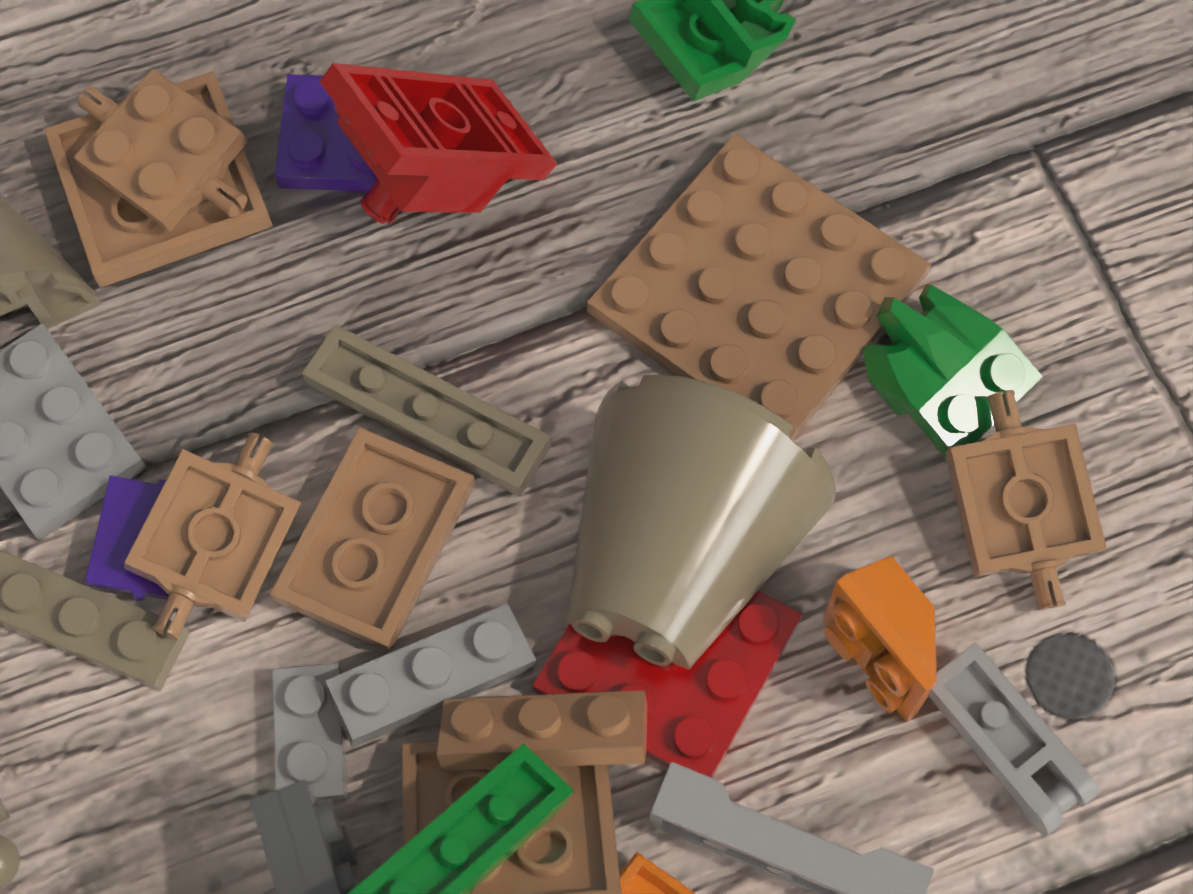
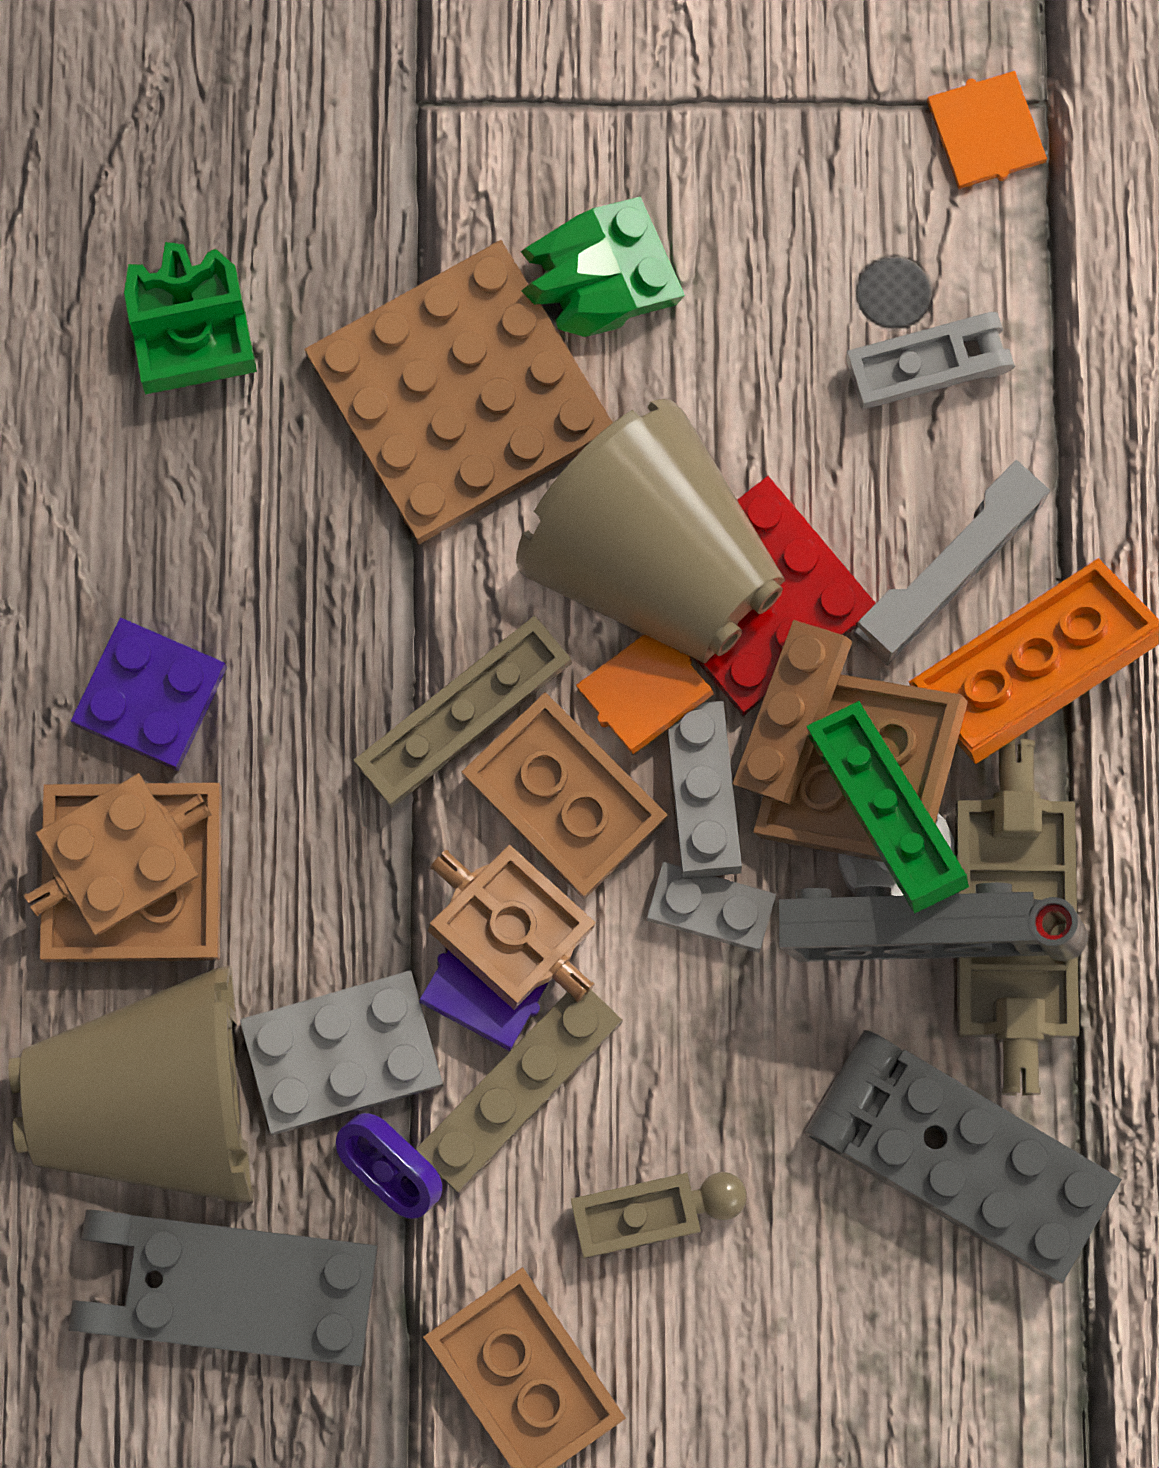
camera: 70 degrees left, 10 degrees up
(432, 138) = (222, 603): red brick -> none
(514, 576) = (644, 691): none -> orange piece
(889, 632) = (819, 412): orange slope -> none
(1025, 500) = (744, 259): medium nougat plate -> none

